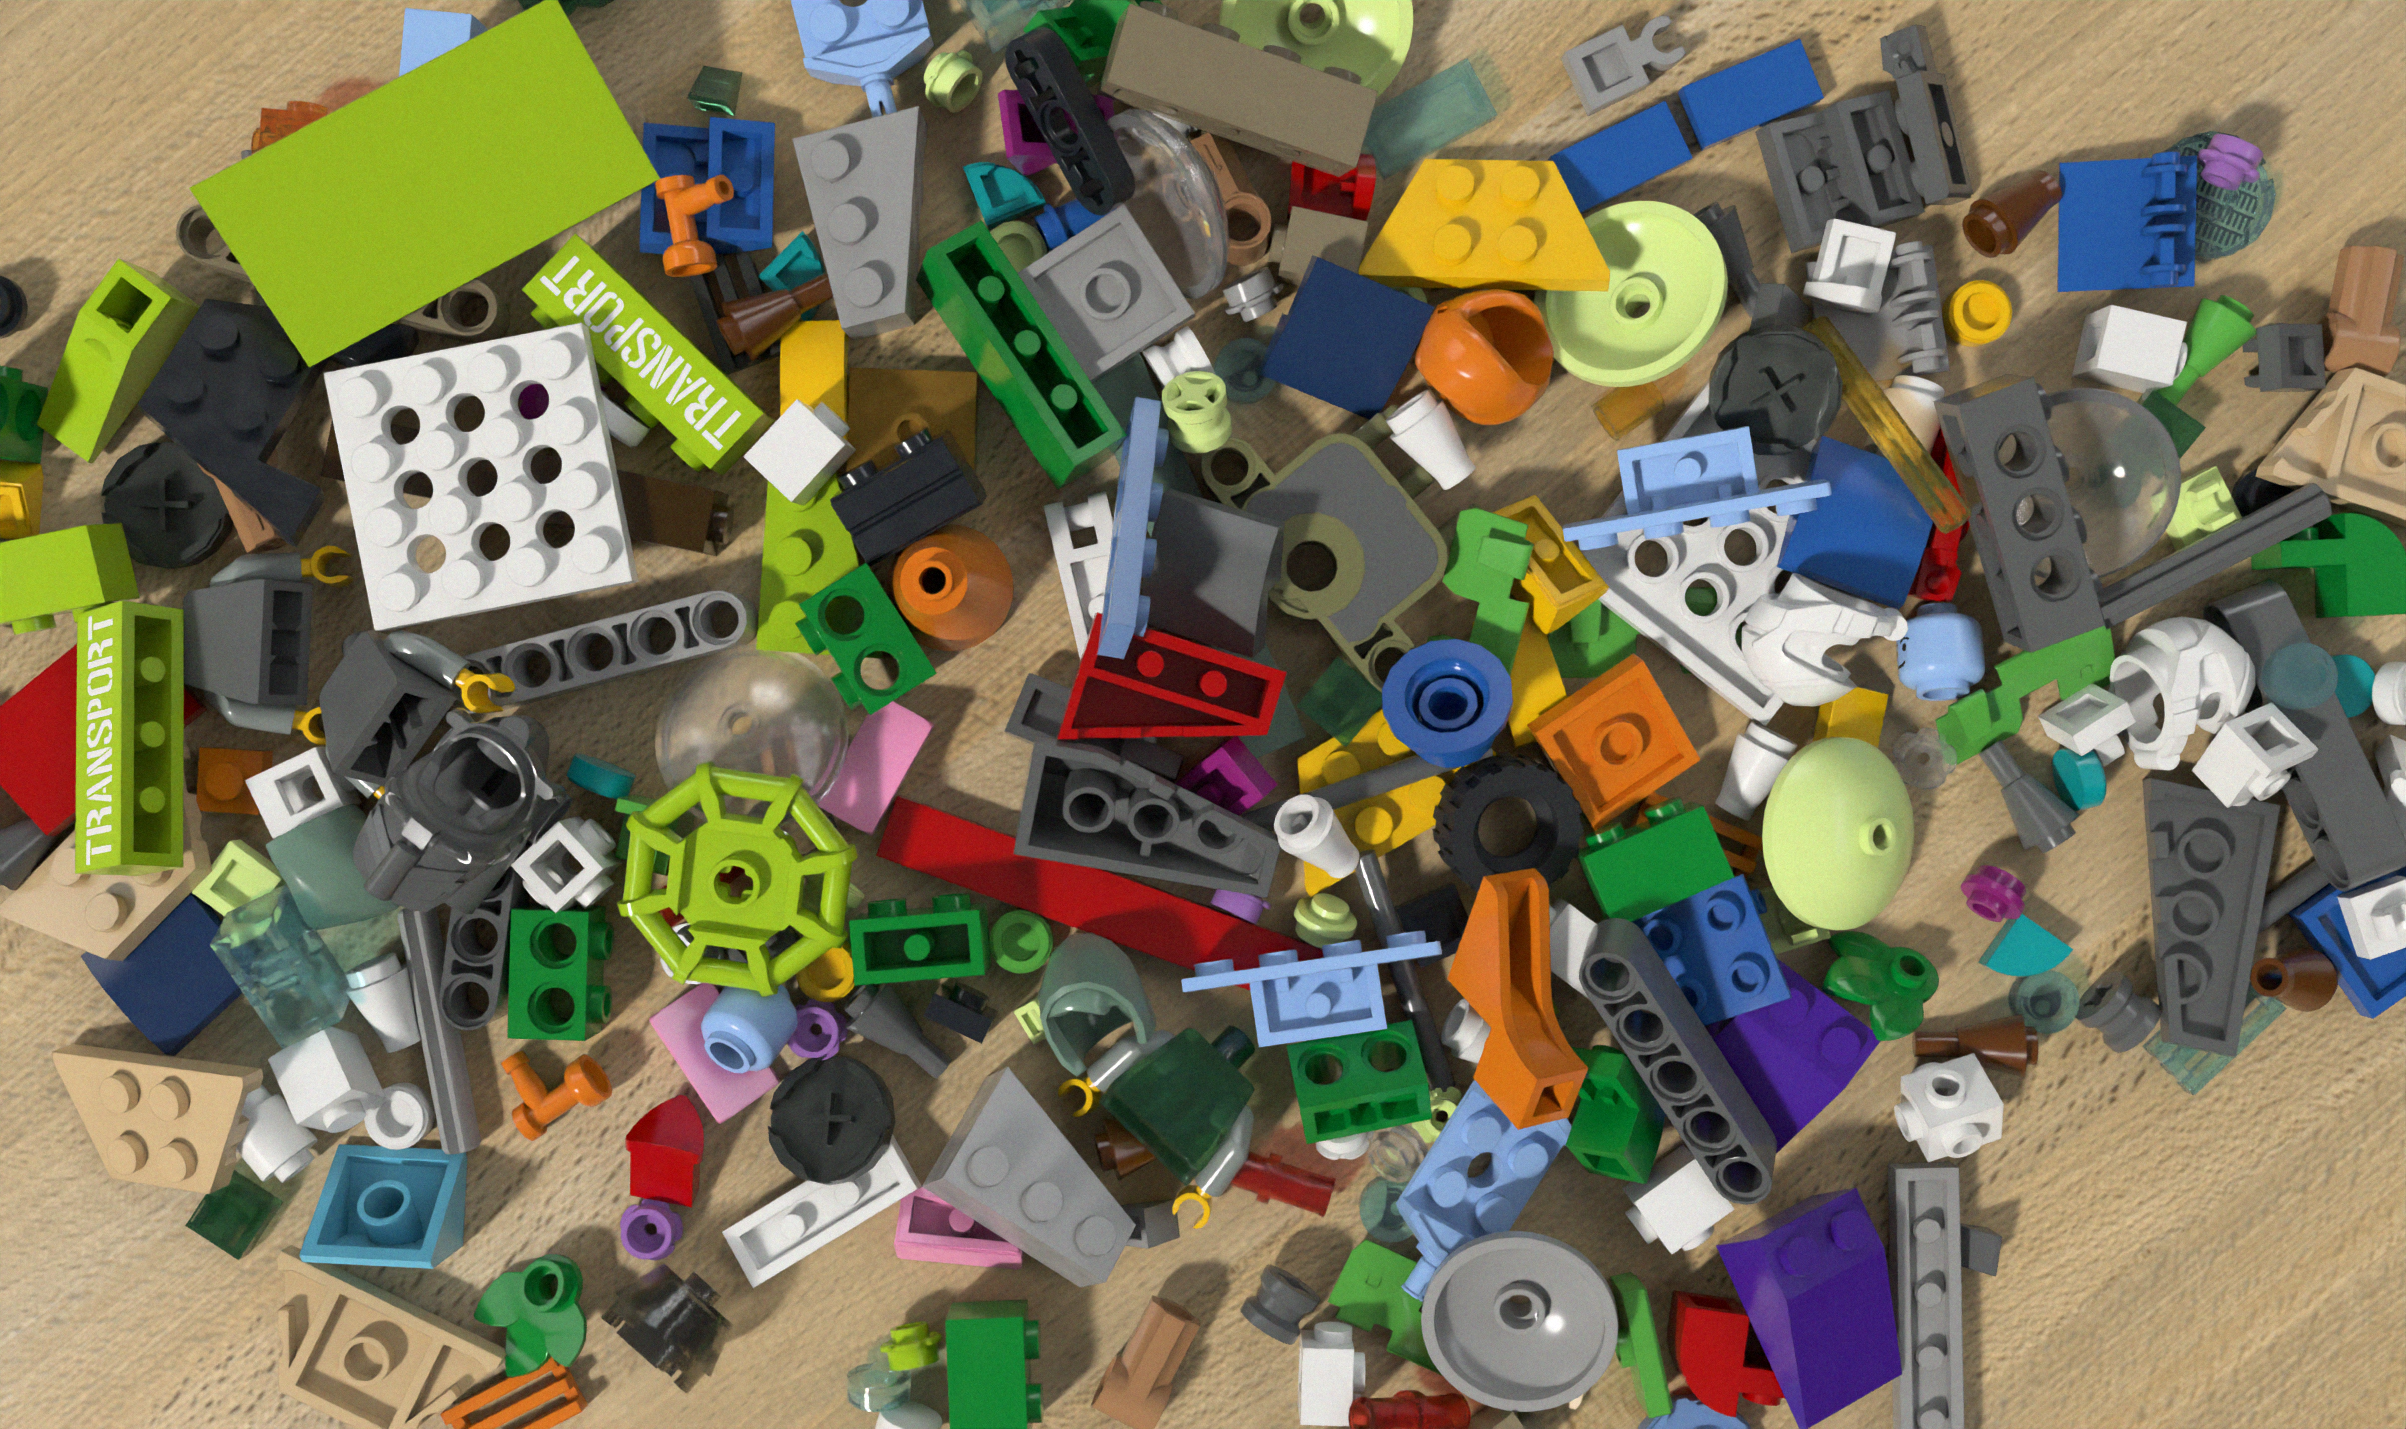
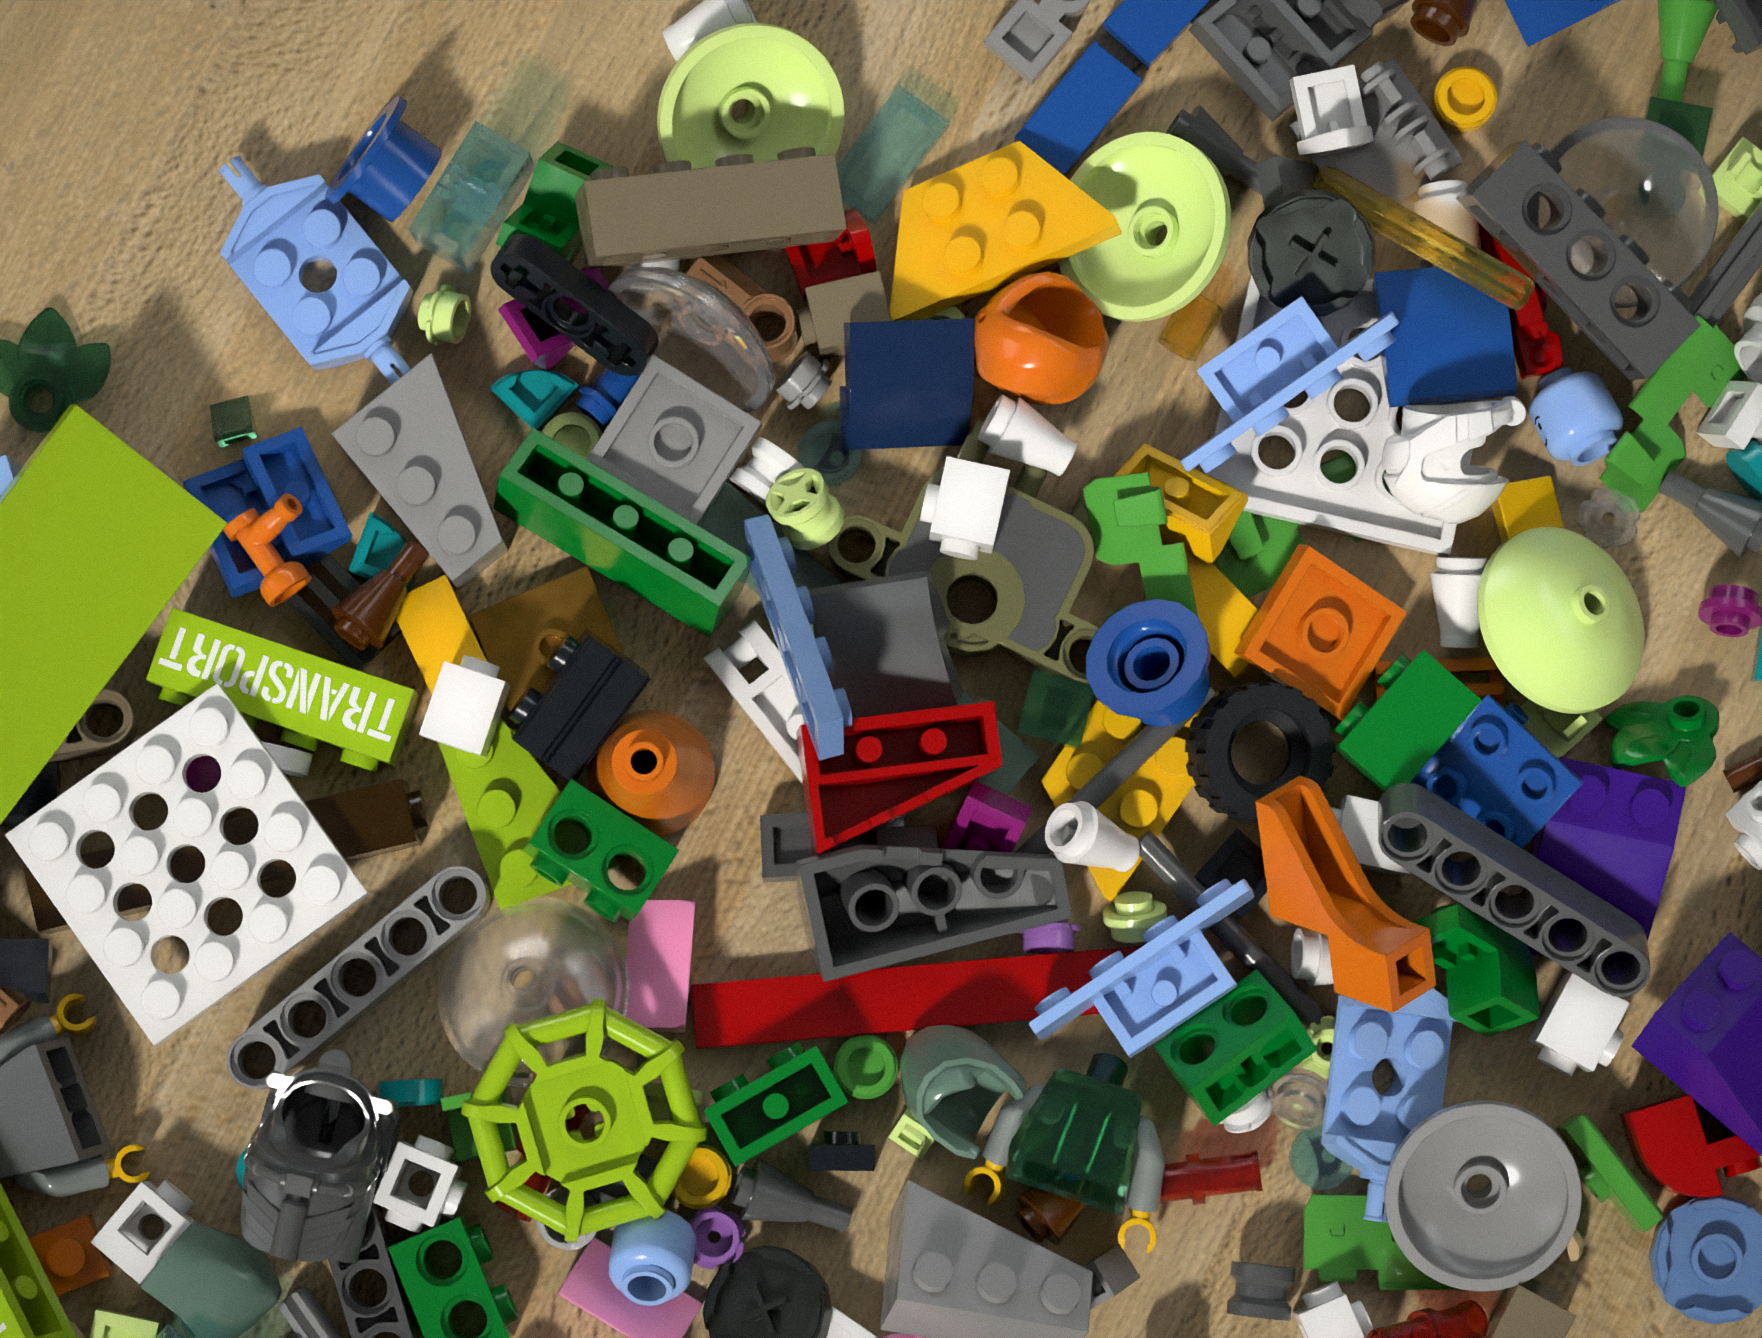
camera: 30 degrees left, 5 degrees down
(391, 699) = (192, 1109): dark grey torso -> none
(1344, 479) = (965, 507): none -> white brick
(2130, 349) = (1615, 69): white brick -> none

